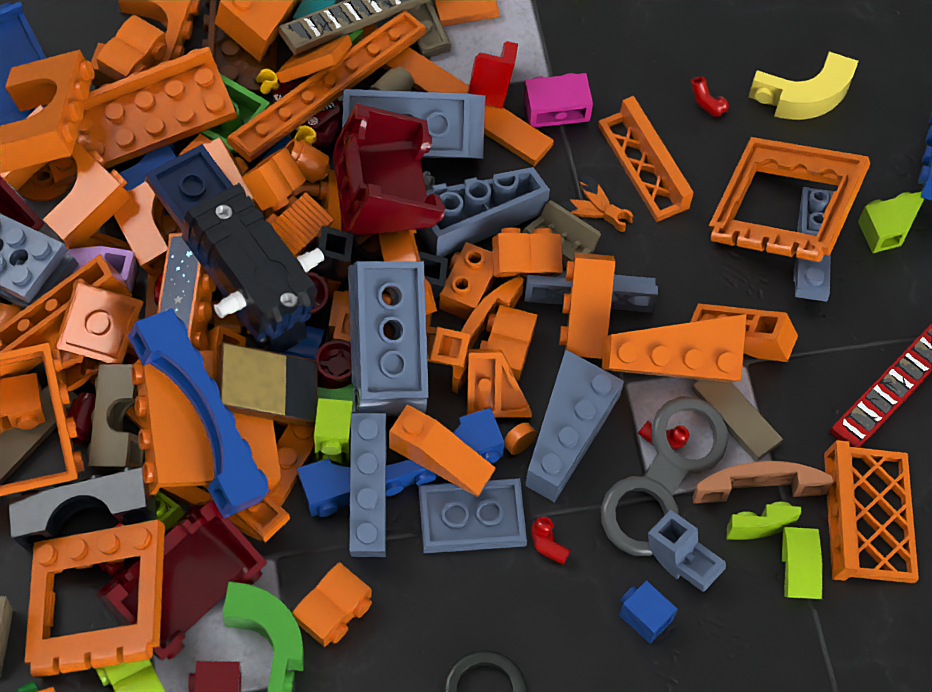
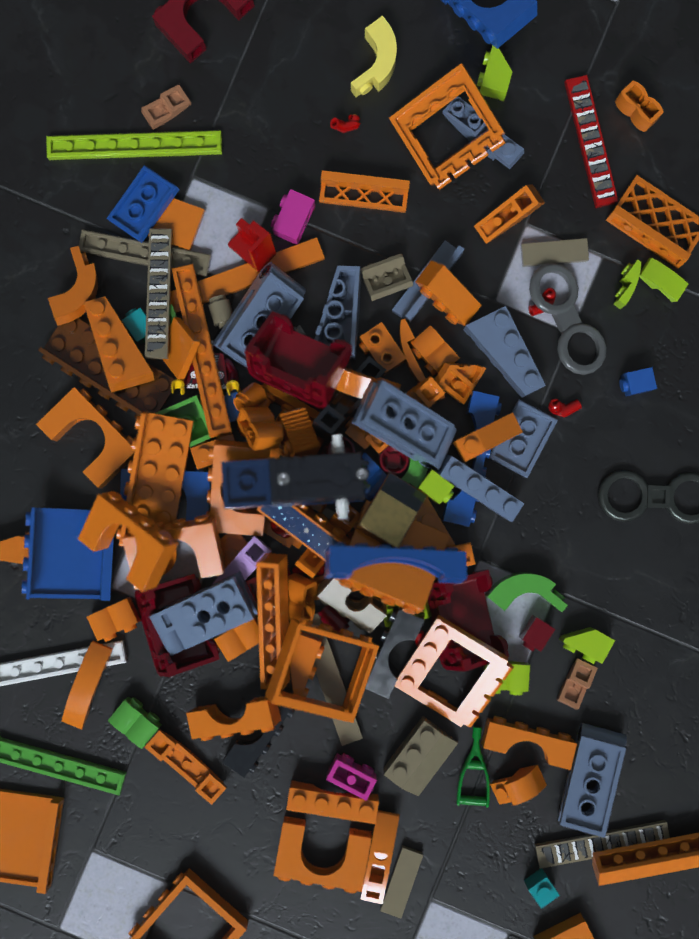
camera: 50 degrees left, 25 degrees up
(98, 323) = (298, 586): orange tile -> none
(132, 49) = (107, 457): orange brick -> none
(332, 605) = (530, 546): orange brick -> none
(520, 438) = (496, 384): orange tile -> none
(527, 254) = (393, 307): orange brick -> none
(597, 206) = (374, 239): orange piece -> none
(680, 553) = (622, 340): sand blue brick -> none
(687, 350) = (513, 257): orange wedge -> none
(802, 478) = (593, 292): nougat slope -> none

